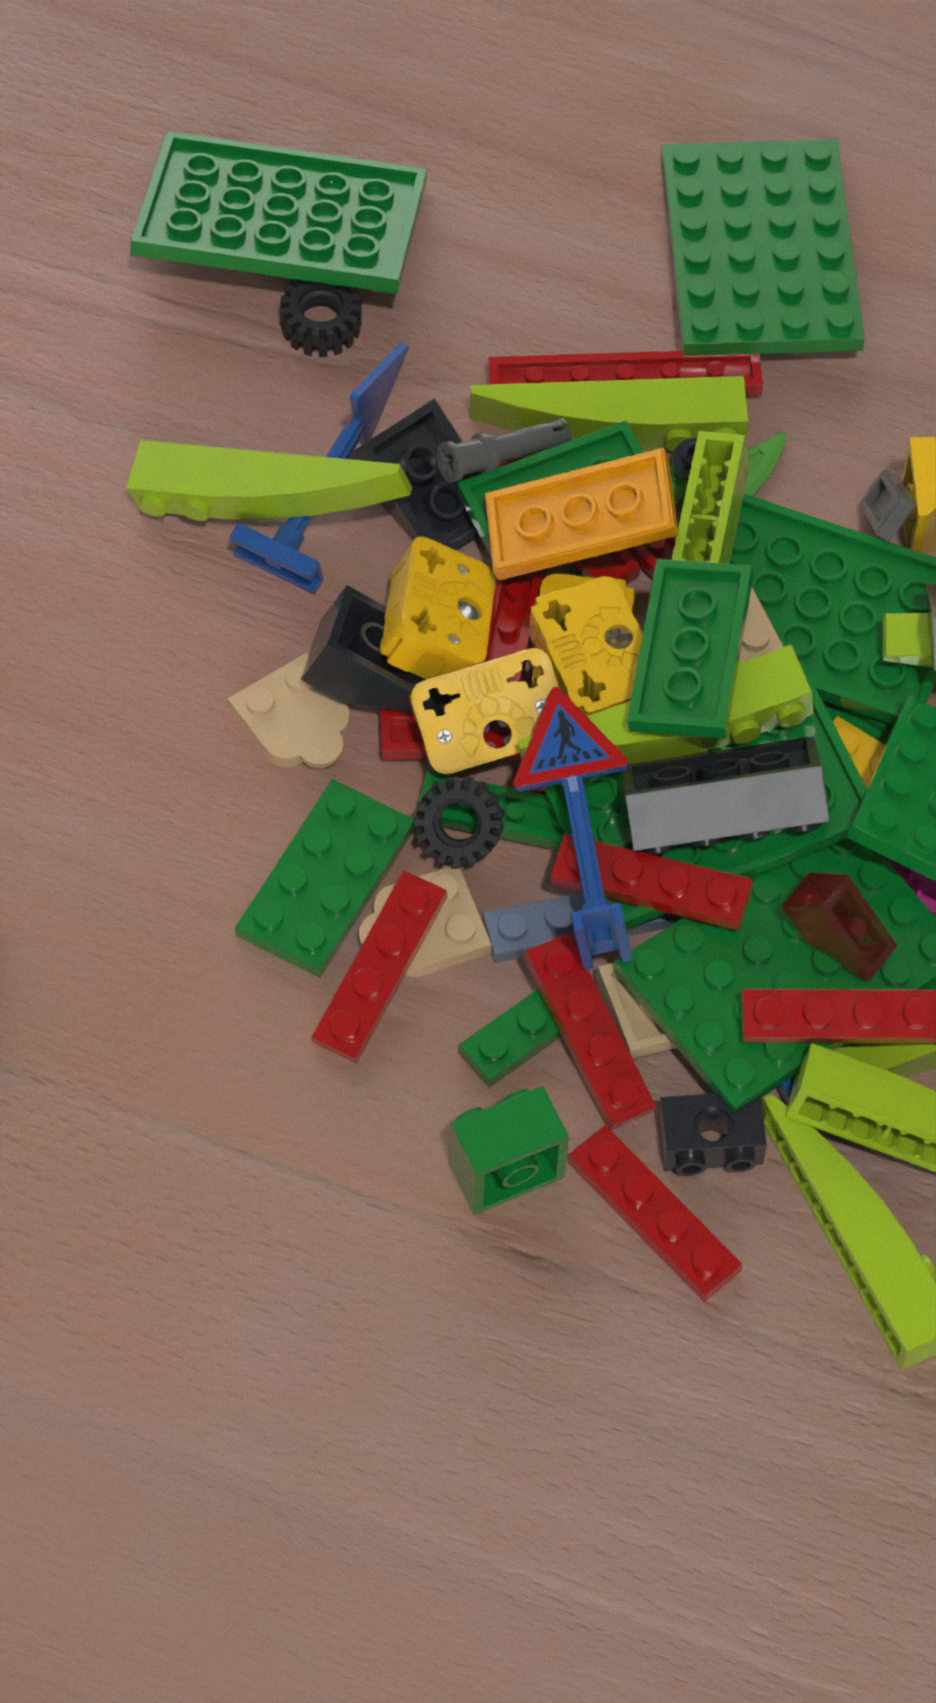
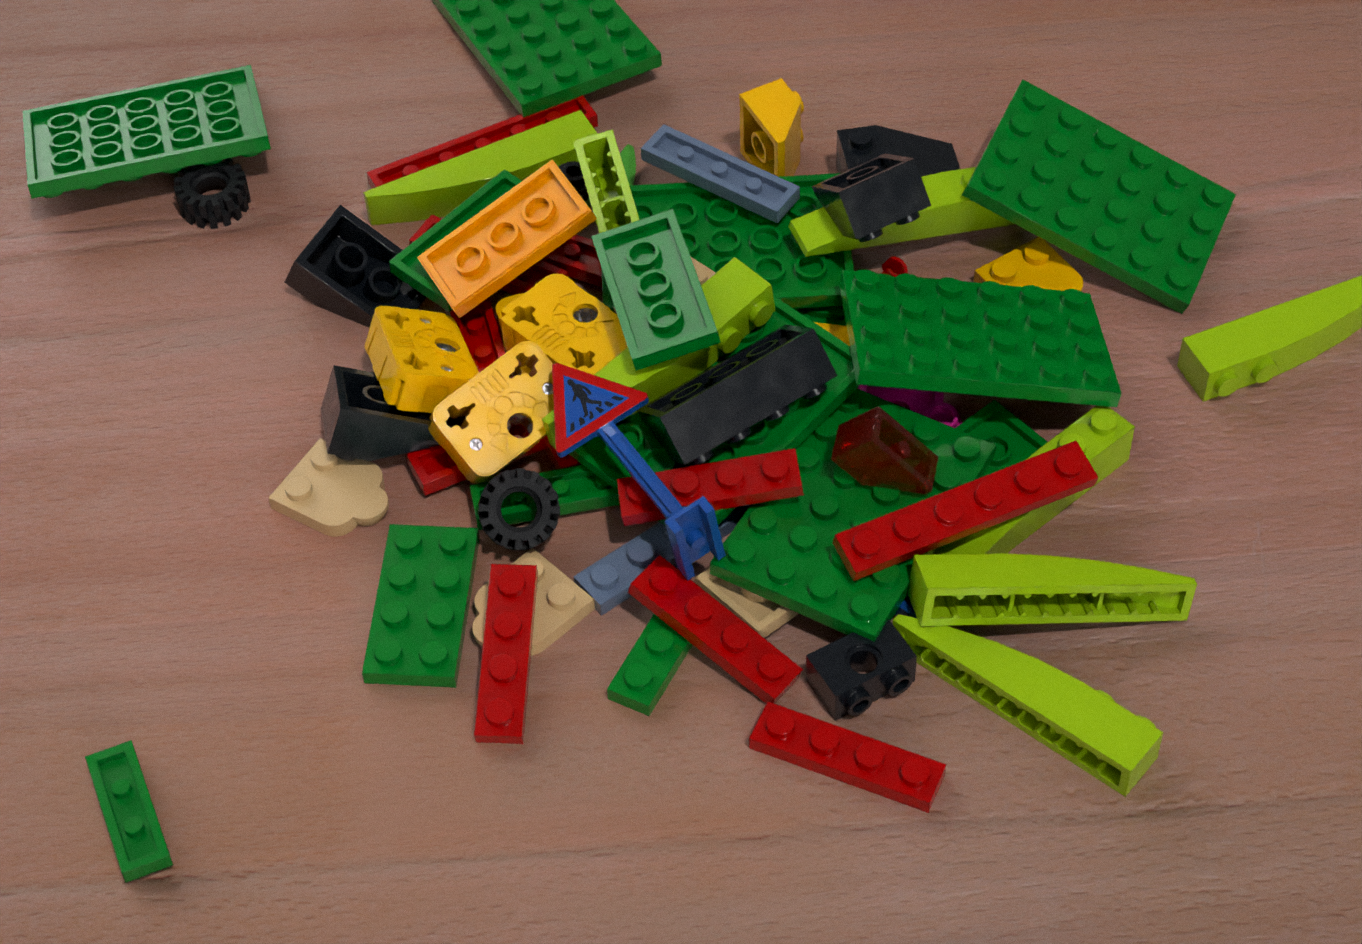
camera: 20 degrees left, 10 degrees down
(255, 484) = (218, 321): lime slope -> none
(281, 554) = (263, 372): blue piece -> none
(486, 451) = (403, 229): dark grey pin -> none
(508, 1149) = (698, 750): green brick -> none
(844, 523) = (720, 173): none -> sand blue plate
(887, 504) = (747, 147): dark grey tile -> none

